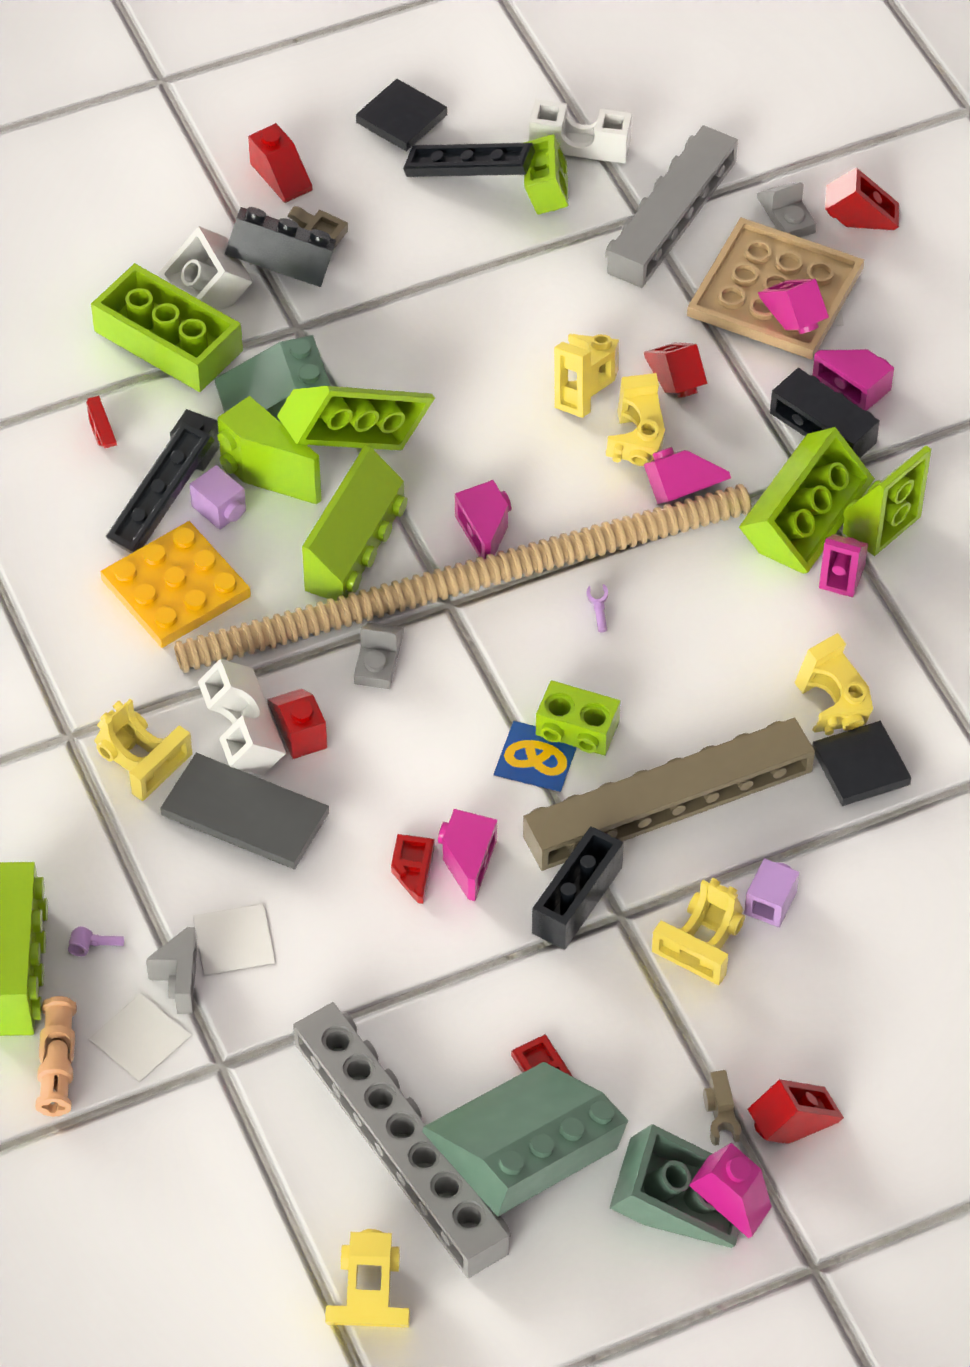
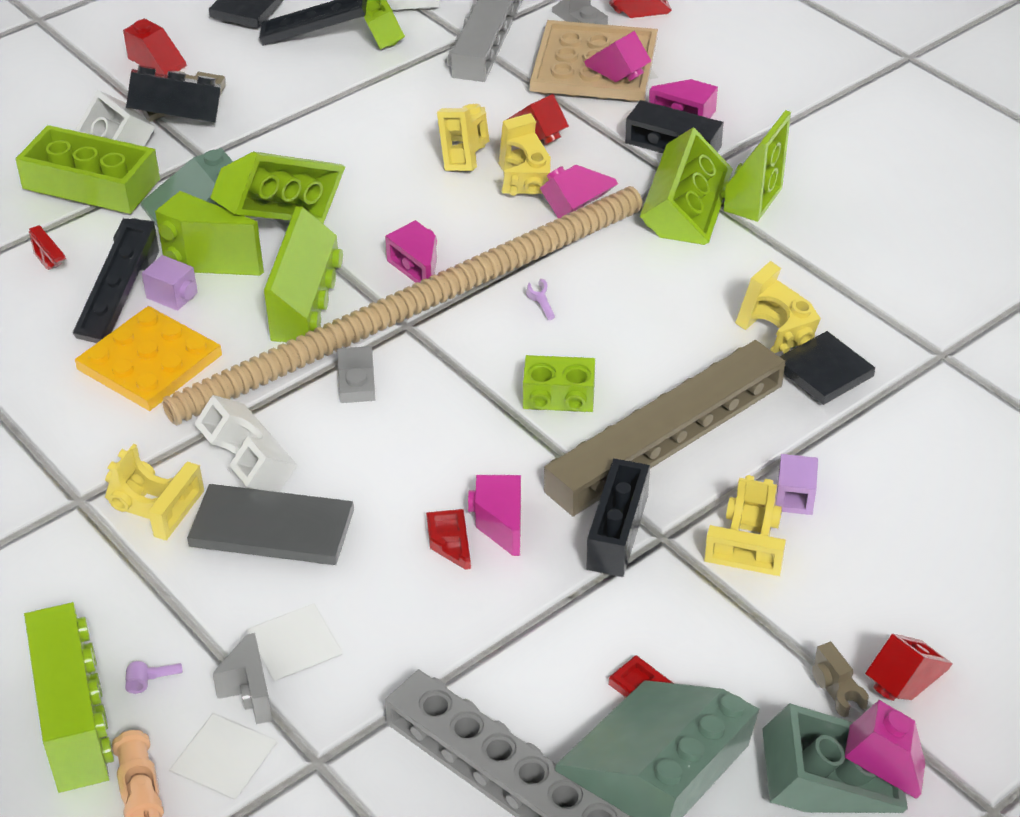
camera: 15 degrees left, 10 degrees down
(299, 722) = (304, 440): red slope -> none
(534, 759) = (529, 427): blue sticker -> none
(842, 564) = (740, 225): dark pink slope -> none

